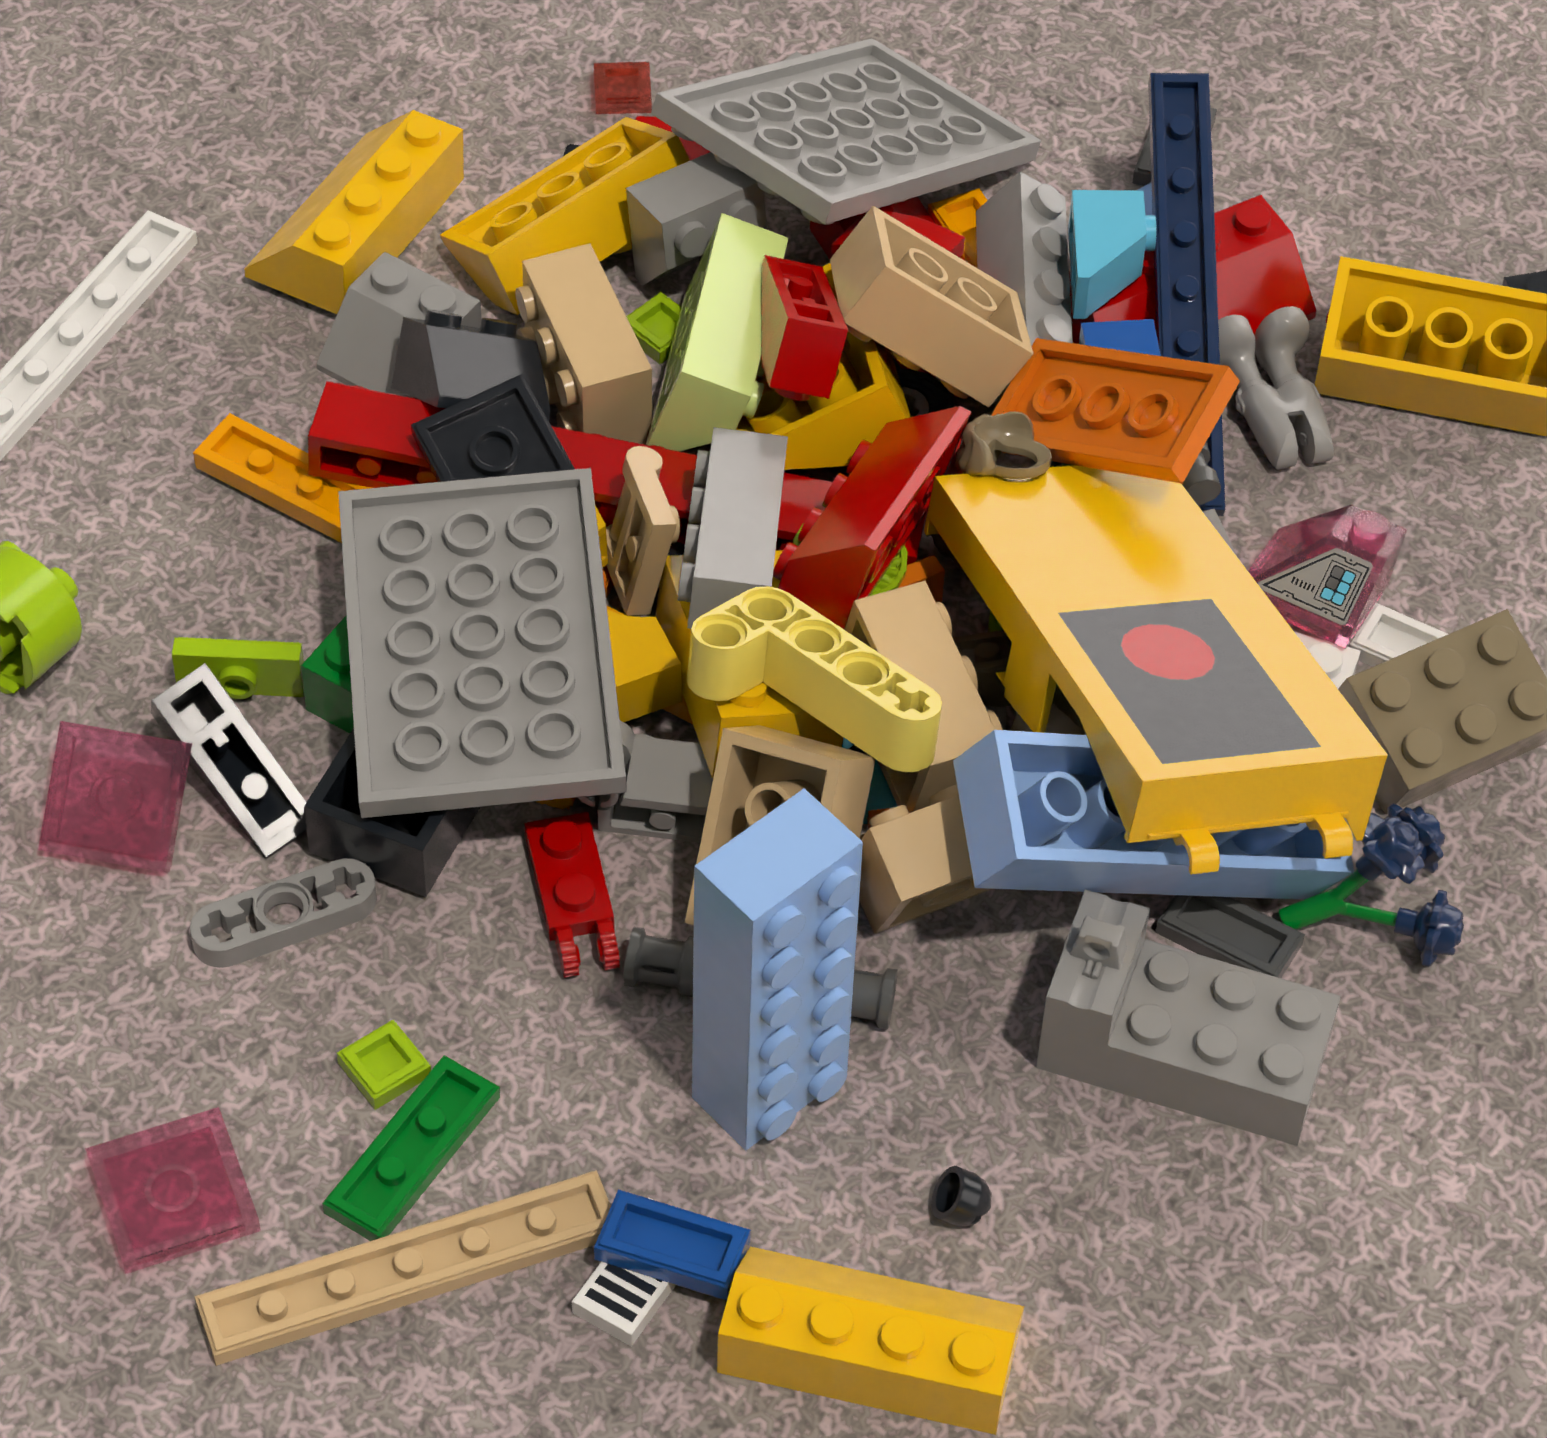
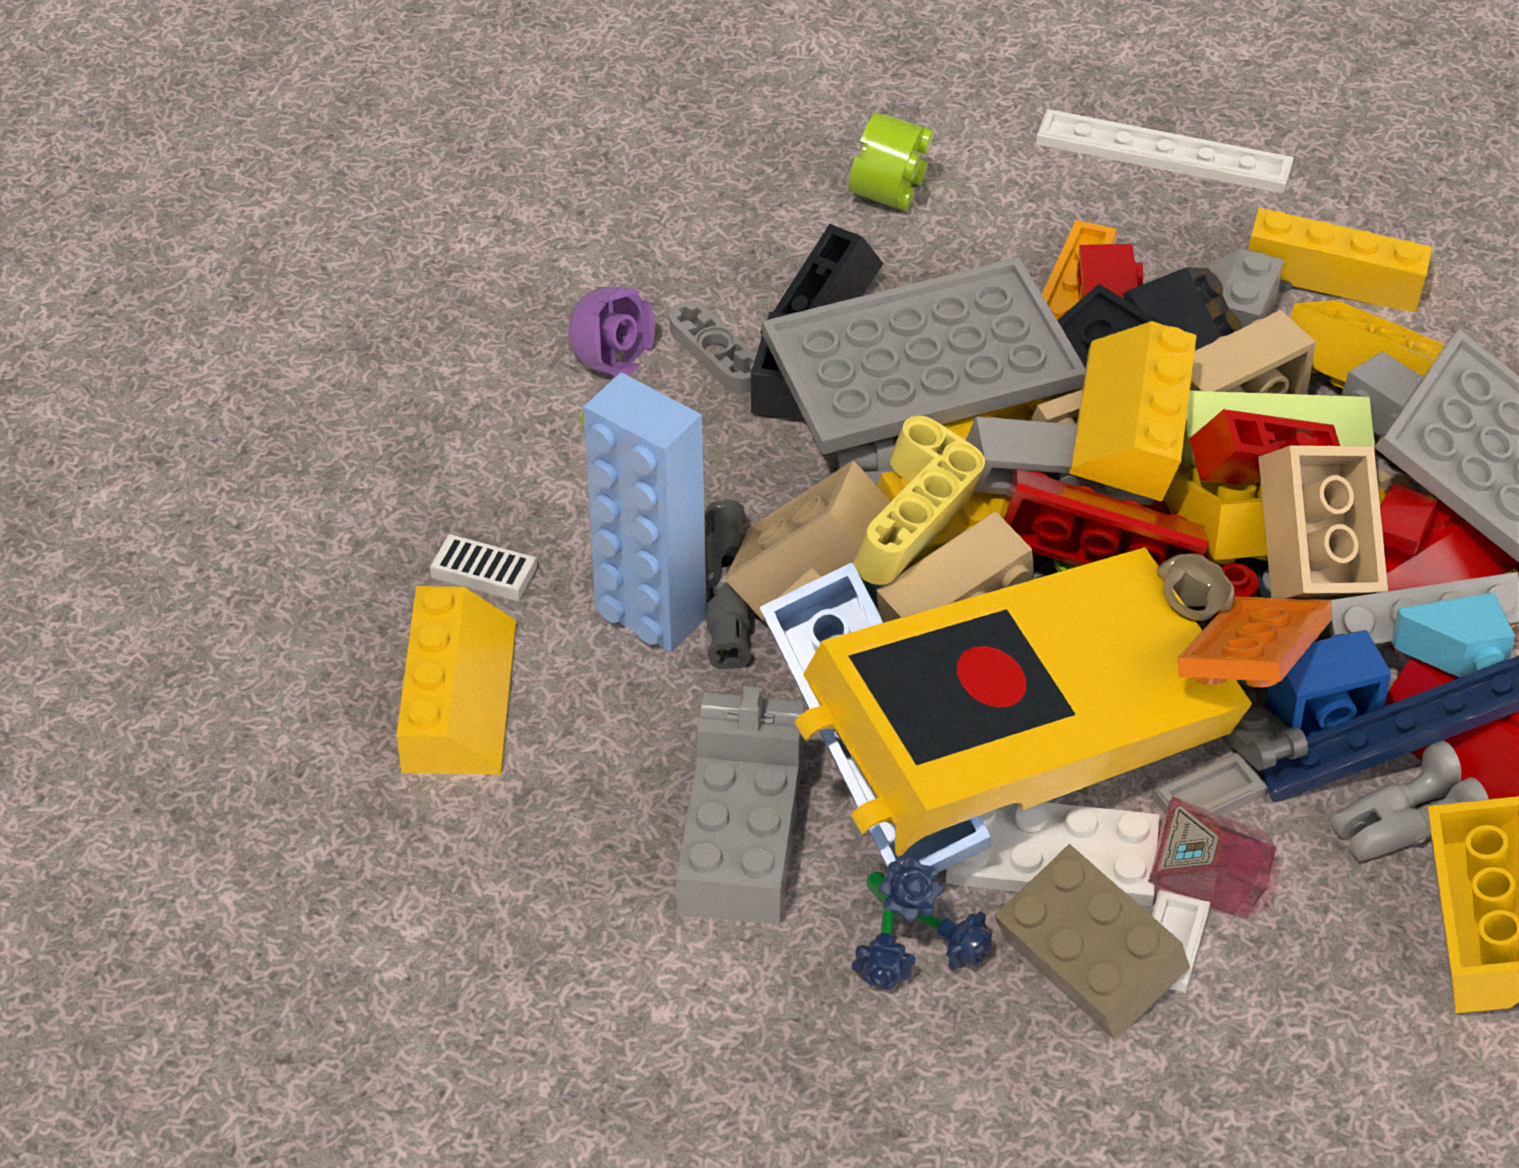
camera: 80 degrees right, 5 degrees down
(115, 796) = (769, 242): clear pink tile -> none
(172, 1190) = (494, 342): clear pink tile -> none
(229, 1028) = (610, 321): none -> medium lavender cylinder
(243, 665) = (896, 264): lime plate -> none
(403, 1268) = (465, 460): tan tile -> none
(411, 1150) = (535, 440): green tile -> none
(572, 888) = (773, 481): red hinge -> none
(671, 1244) = (499, 566): blue tile -> none
(705, 420) = (1134, 409): none -> yellow slope
(960, 1197) = (574, 719): black hinge -> none
(1230, 933) = (846, 857): dark grey tile -> none

